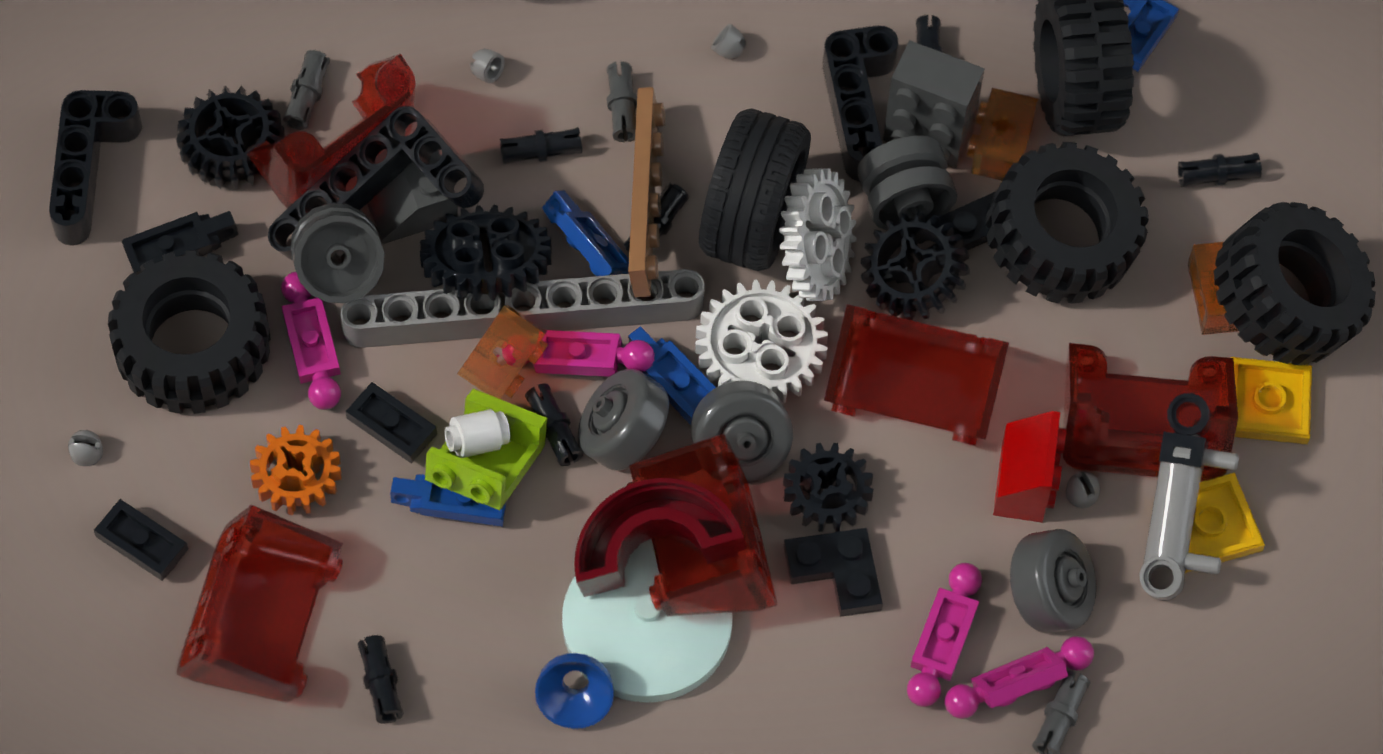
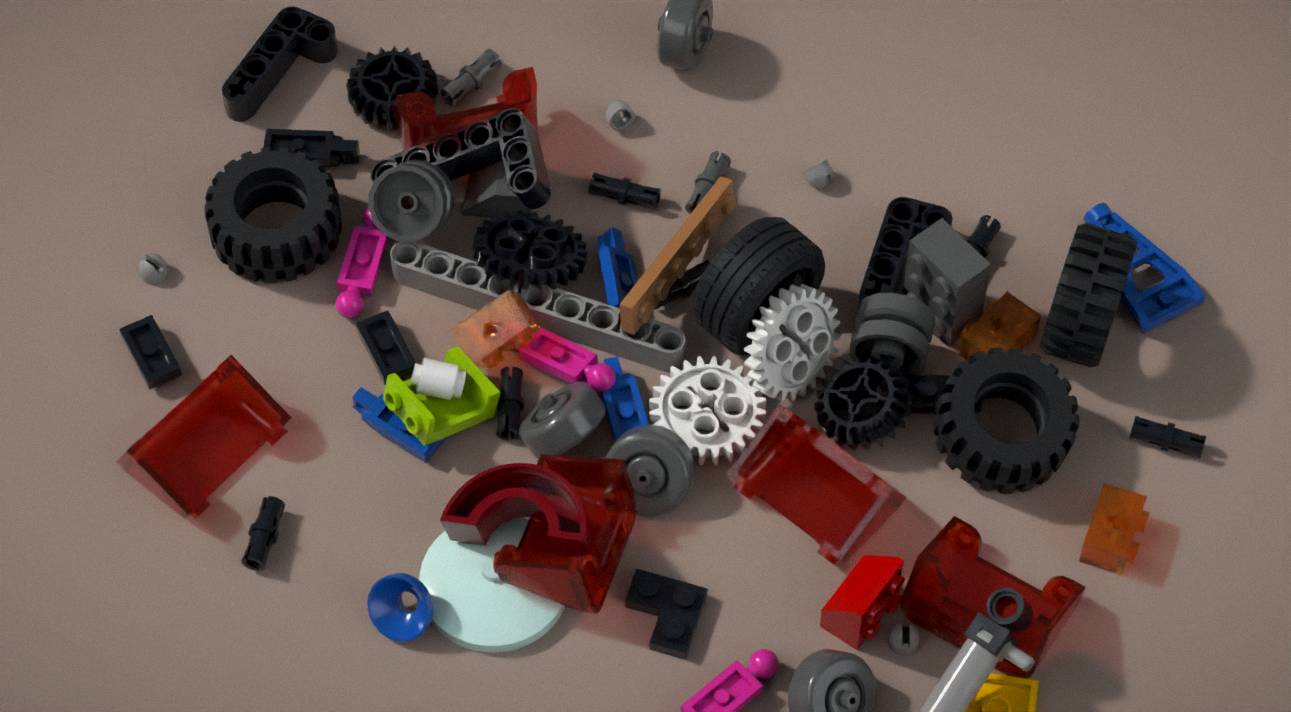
camera: 30 degrees right, 5 degrees down
(291, 485) = (275, 353): orange gear -> none
(835, 502) = (693, 546): black gear -> none
(1269, 309) = (1203, 530): black tyre -> none
(1273, 400) = (1103, 637): yellow tile -> none

